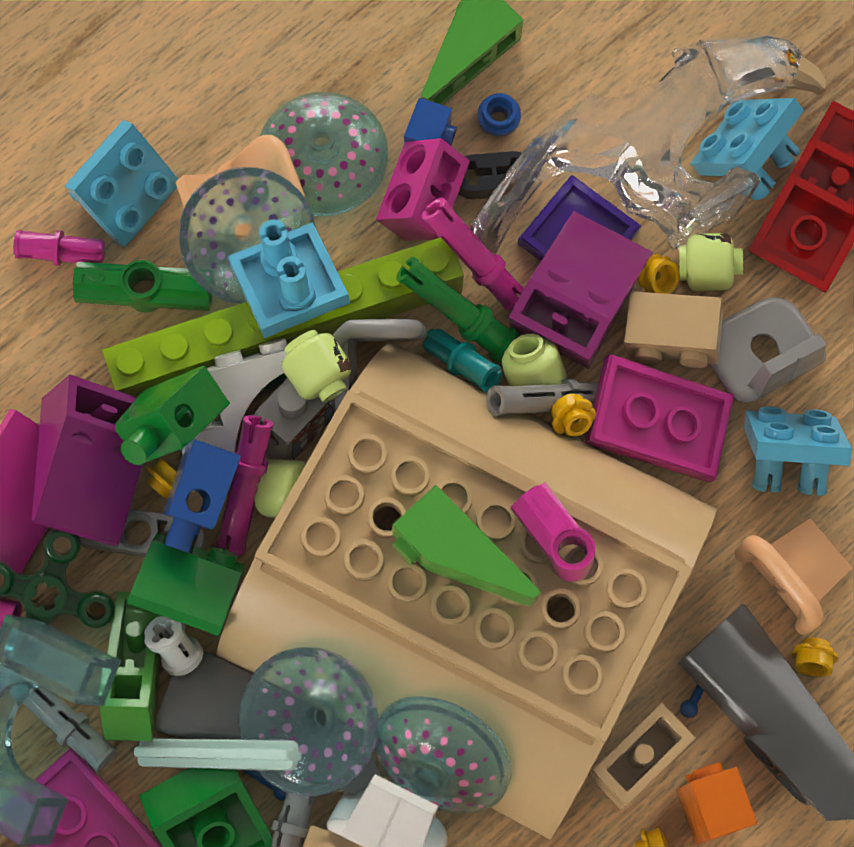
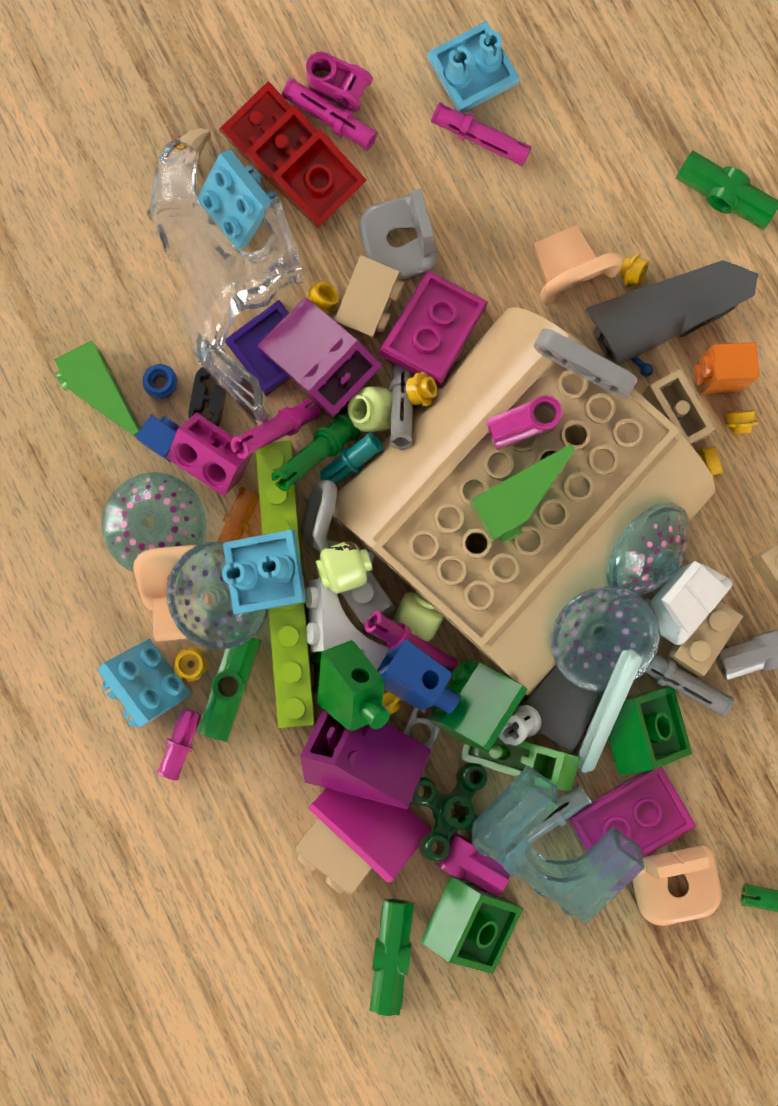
camera: 65 degrees left, 10 degrees up
(151, 229) = (181, 664): none -> yellow plate
(353, 245) = (237, 521): none -> clear orange pin
(587, 820) = (711, 460): none -> yellow plate
(654, 591) = (585, 363): none -> light grey beam
(710, 262) = (322, 256): yellowish green head -> none
(803, 438) = (477, 236): medium azure plate -> none

